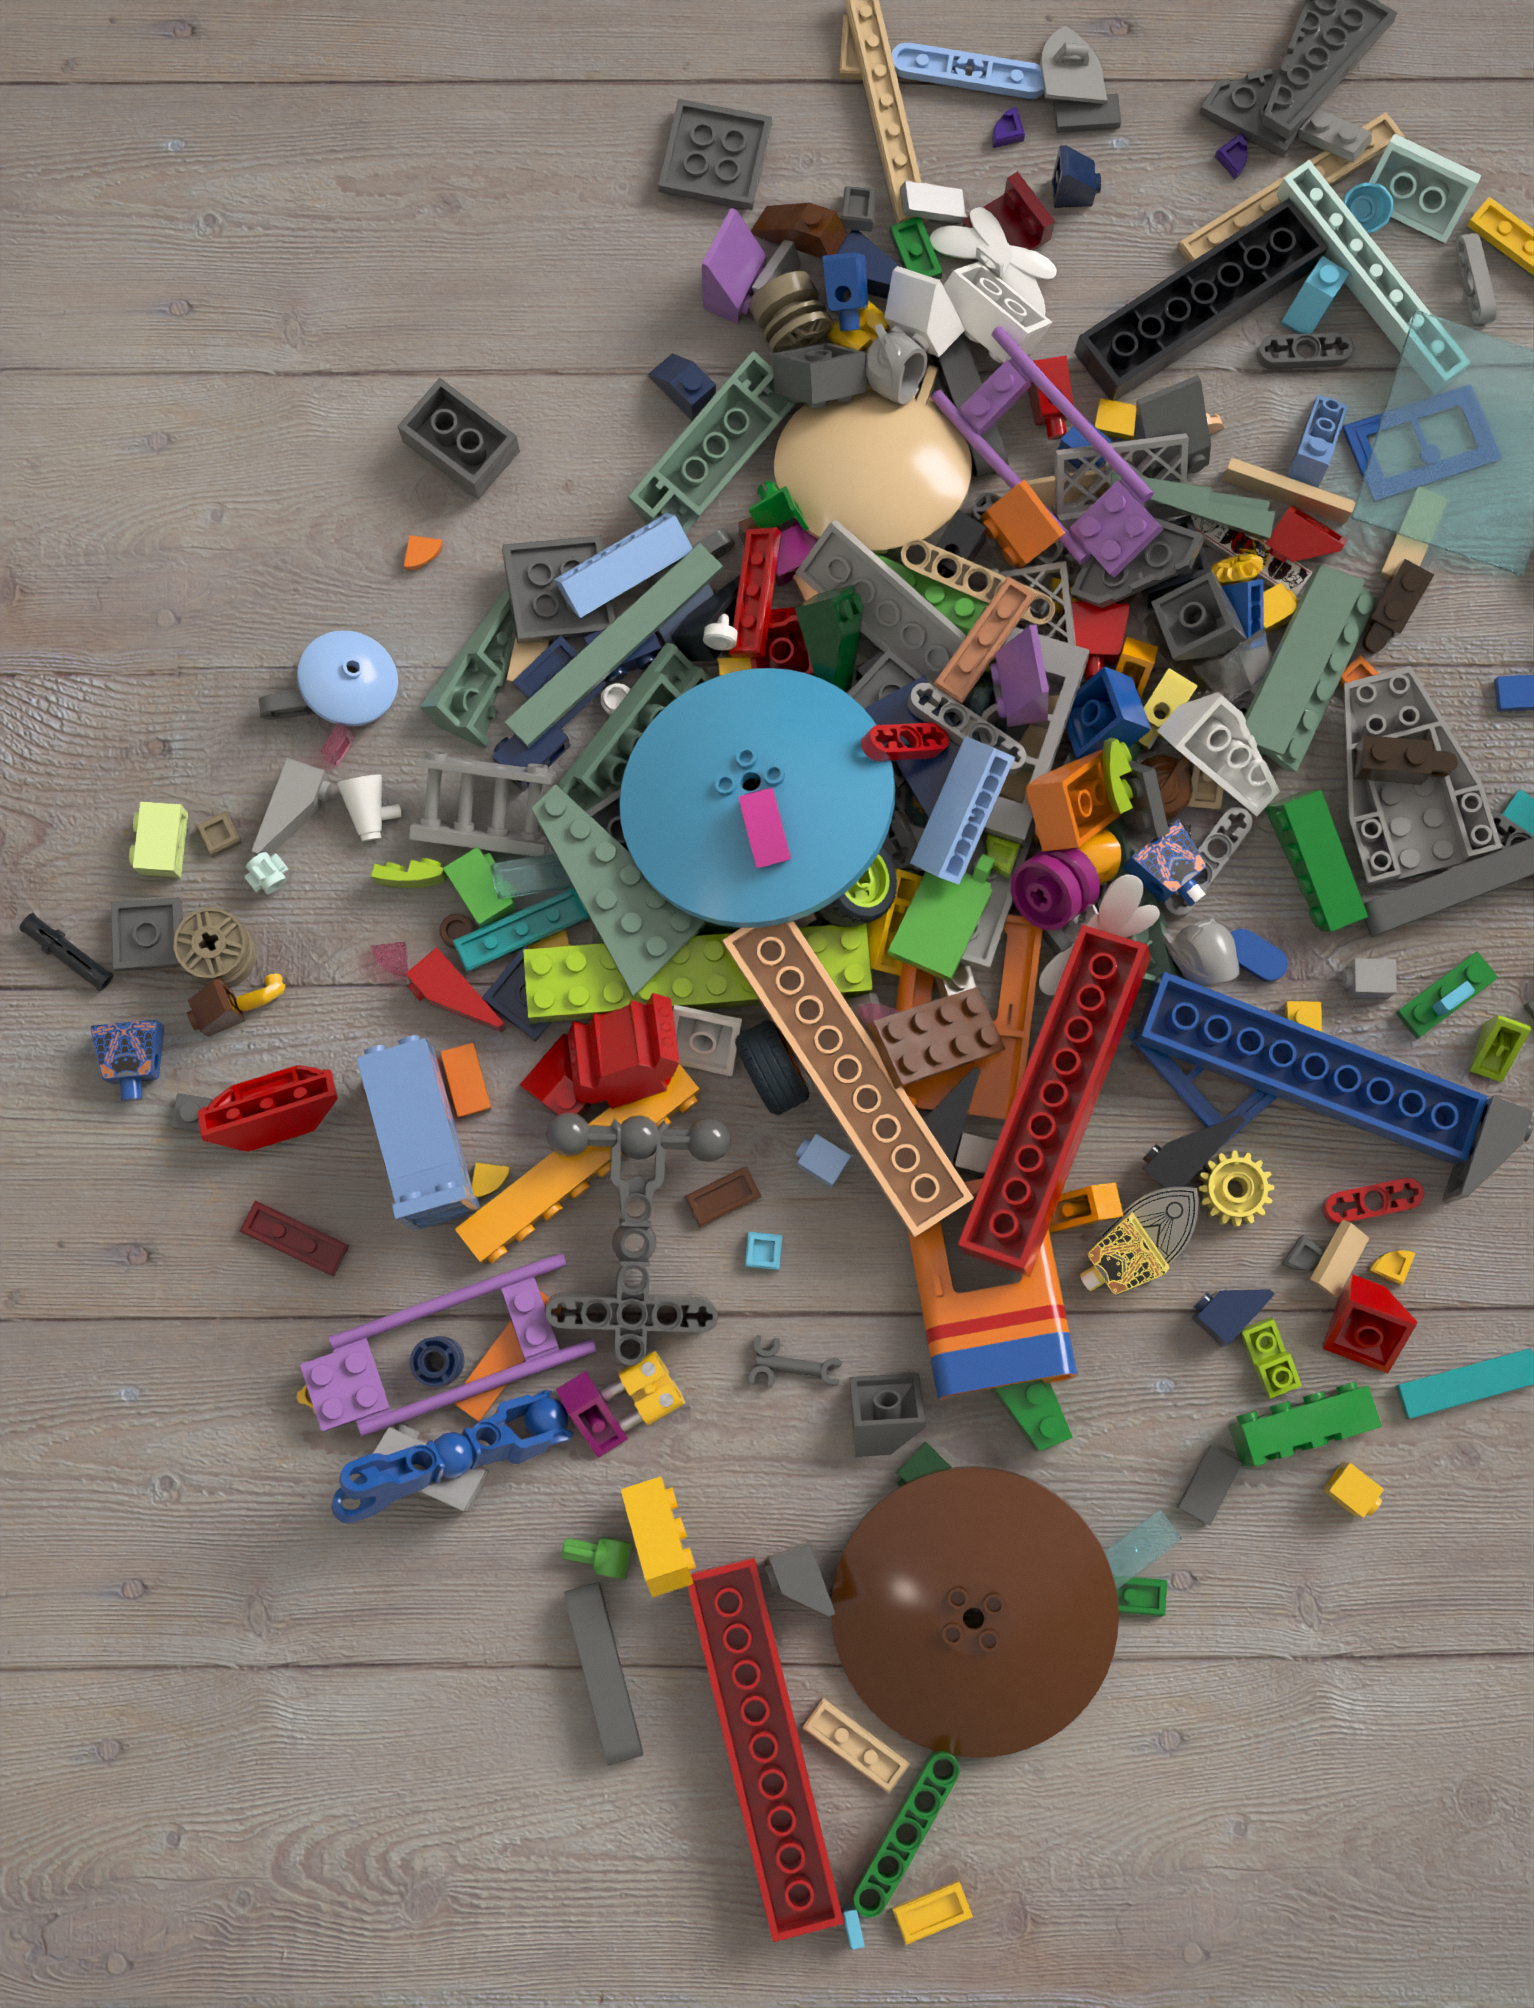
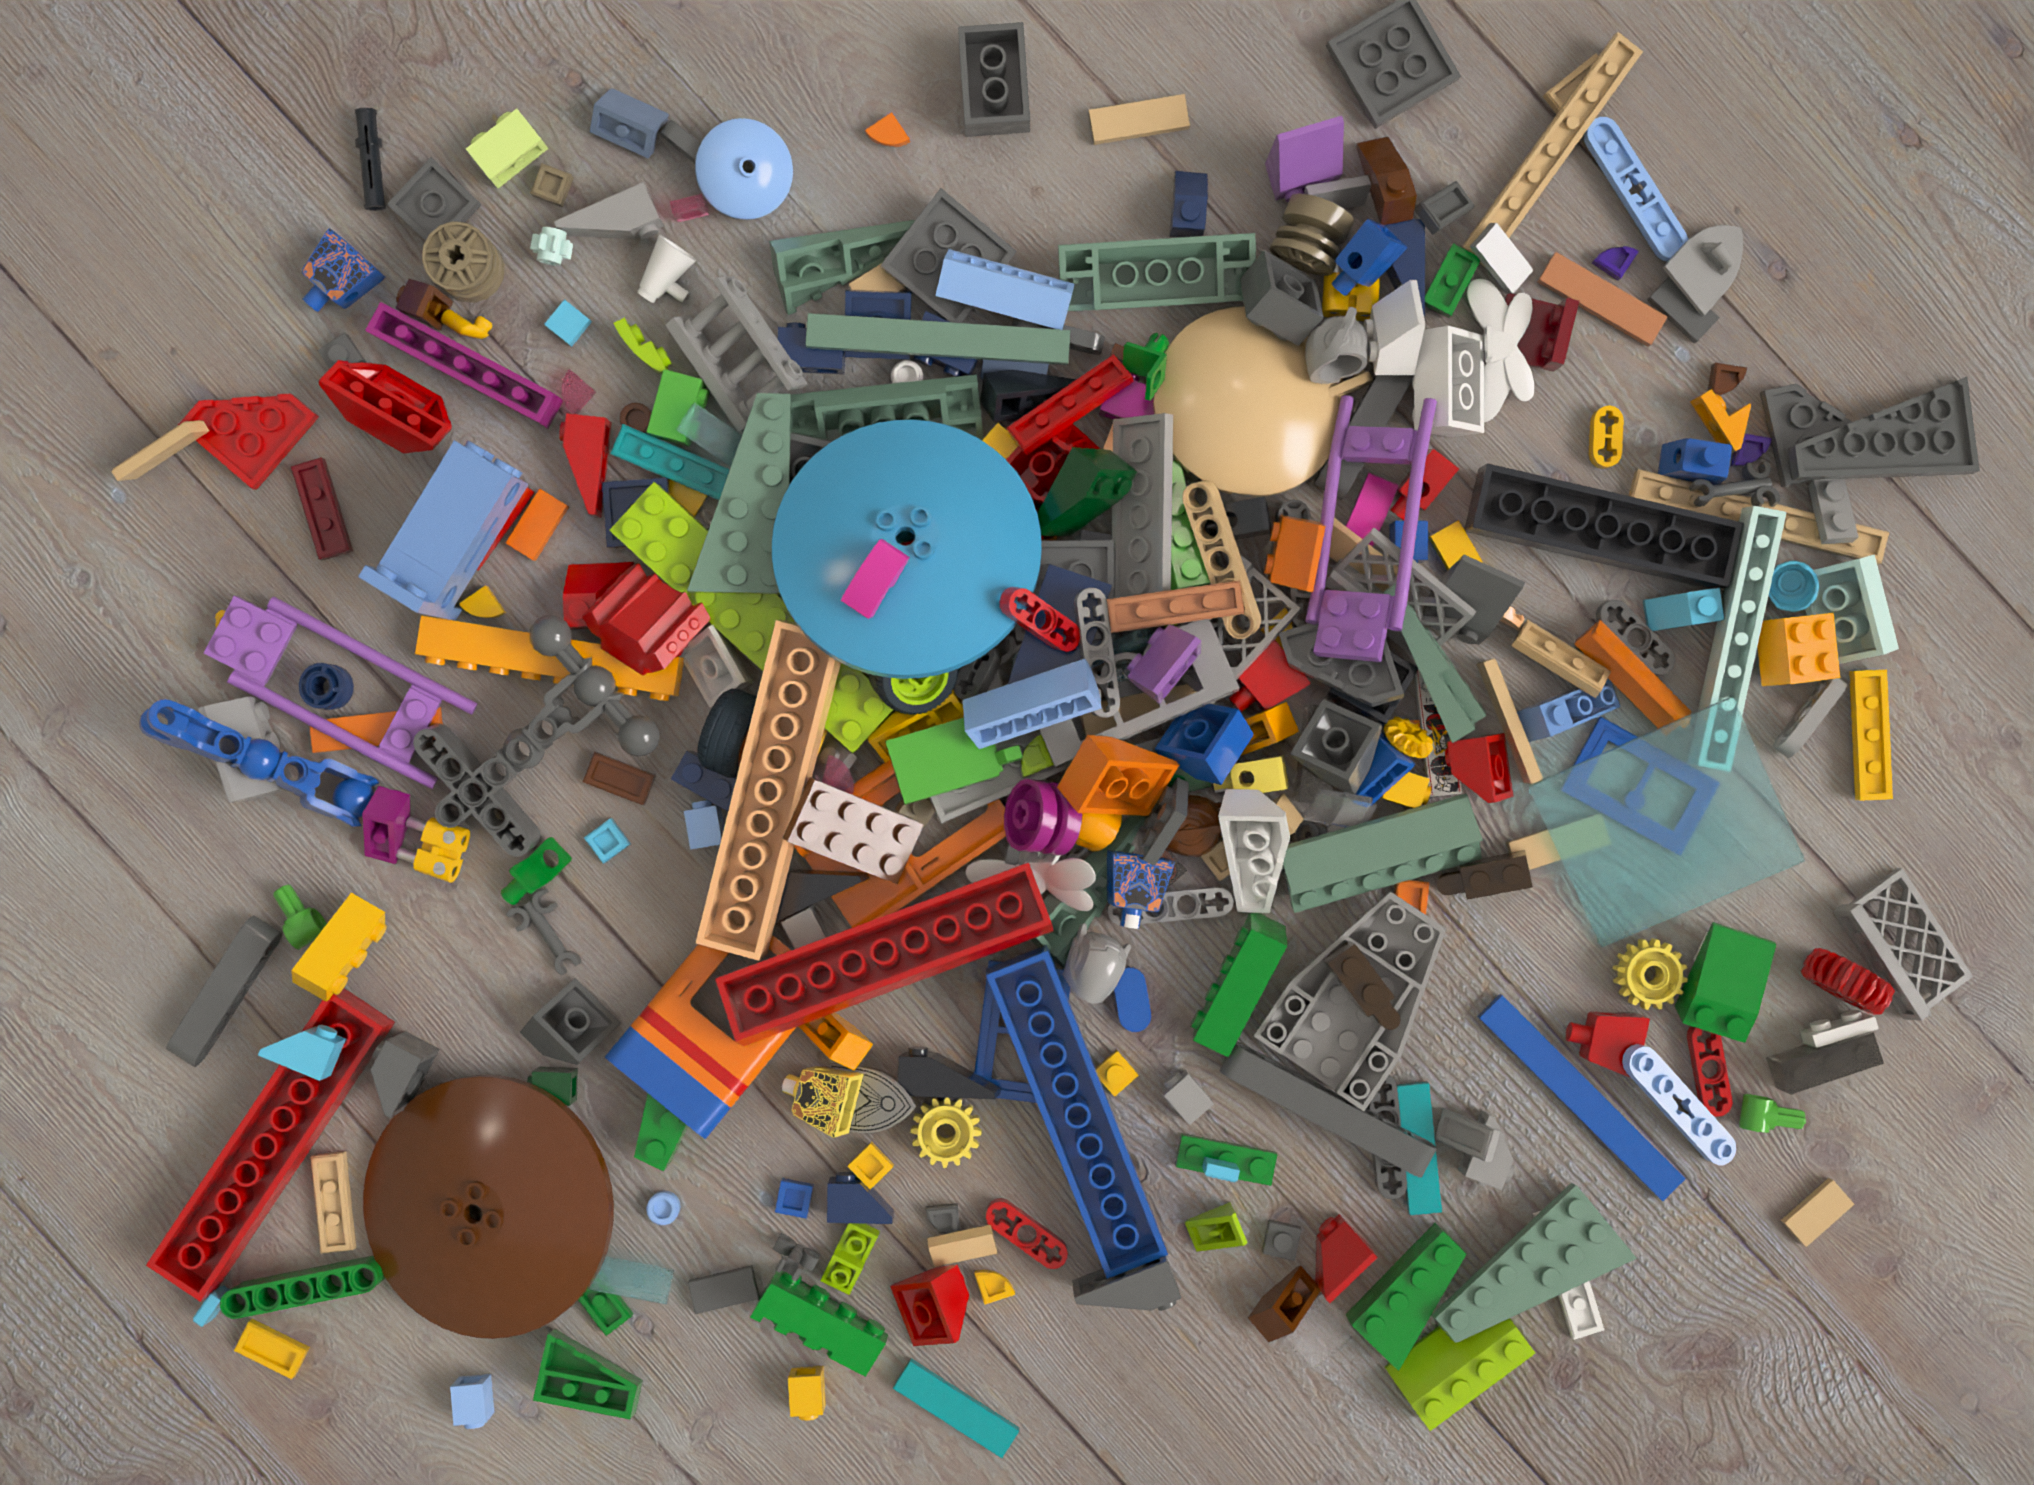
camera: 55 degrees right, 10 degrees up
(131, 1319) = (160, 450): none -> tan tile
(182, 1238) = (252, 432): none -> red plate
(228, 734) = (627, 122): none -> sand blue panel
(293, 1020) = (464, 365): none -> magenta brick
(334, 916) = (568, 323): none -> medium azure tile
(585, 366) = (1139, 119): none -> tan tile
(720, 634) = (1011, 410): white tile -> none
(720, 1632) = (308, 1052): none -> medium azure slope
(737, 1330) = (534, 872): none -> green bracket
(791, 1125) = (704, 782): none -> dark blue brick
(1029, 160) = (1602, 299): none -> nougat tile
(1032, 449) = (1371, 505): none -> dark pink slope
(1074, 179) = (1616, 348): dark blue slope -> none
(1099, 1474) = (663, 1207): none -> light blue tile
(1116, 764) = (1169, 781): lime slope -> none
(1124, 1776) = (472, 1400): none -> light blue brick
(1134, 244) = (1614, 437): none -> yellow beam
(1165, 128) = (1725, 377): none -> reddish brown tile
(1184, 1360) = (794, 1198): none -> blue tile
(1188, 1662) = (584, 1380): none -> green wedge
(1204, 157) = (1721, 426): none -> light orange slope
(1210, 1273) = (870, 1165): none -> yellow plate
(1216, 189) = (1698, 460): none -> blue torso
(1234, 1396) = (797, 1257): none -> dark grey bar
(1262, 170) = (1753, 482): none -> dark grey bar
(1273, 413) = (1561, 658): none -> tan tile
(1331, 376) = (1632, 676): none -> orange panel
(1420, 241) = (1798, 650): none -> light orange brick

